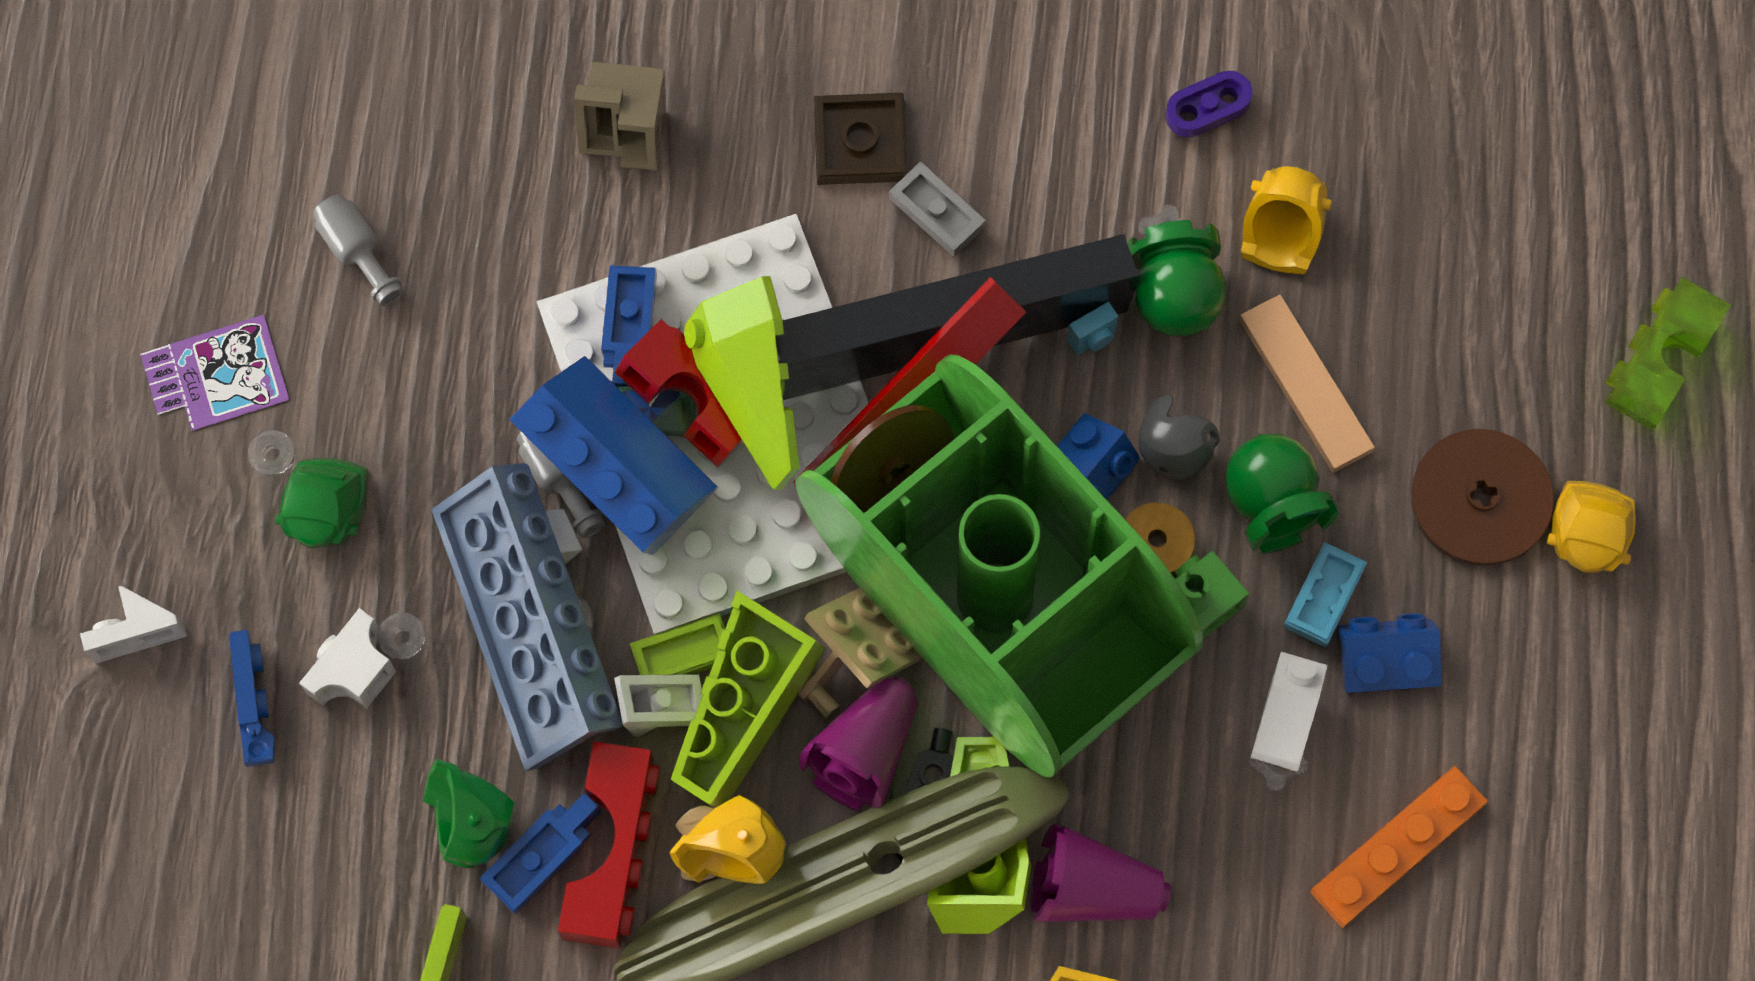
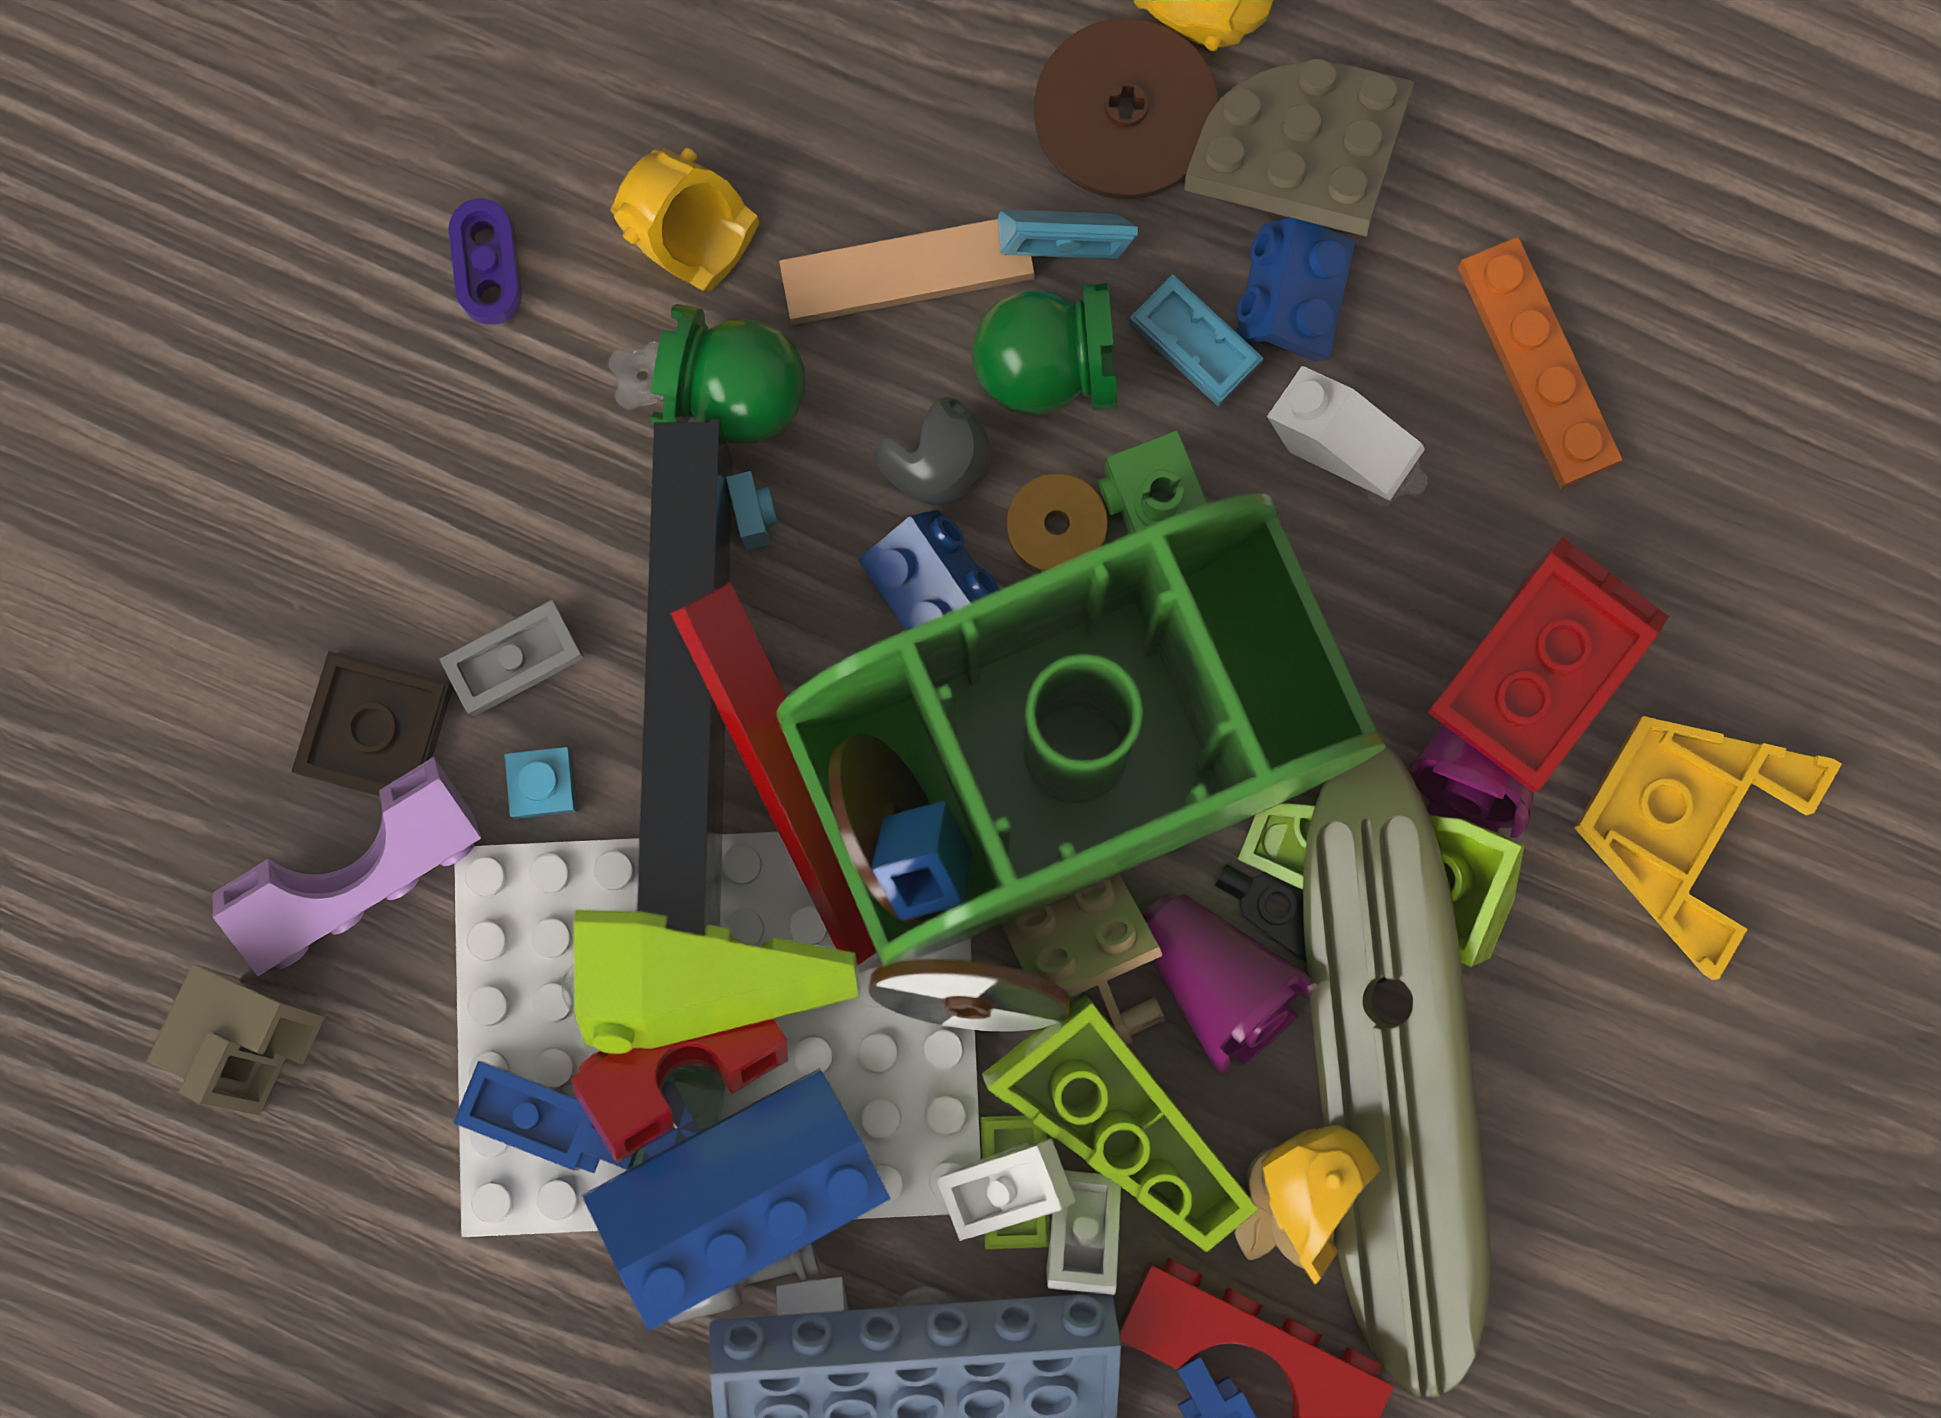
camera: 70 degrees left, 10 degrees up
(672, 633) = (1006, 1189): none -> white slope
(716, 115) = (280, 912): none -> lavender arch
(796, 558) = (969, 995): none -> piece
(858, 256) = (540, 783): none -> medium azure plate
(869, 475) = (922, 860): none -> blue brick
(1163, 889) = (1548, 664): none -> red bracket
(1370, 478) = (1064, 234): none -> medium azure slope
(1499, 624) = (1303, 143): none -> dark tan plate

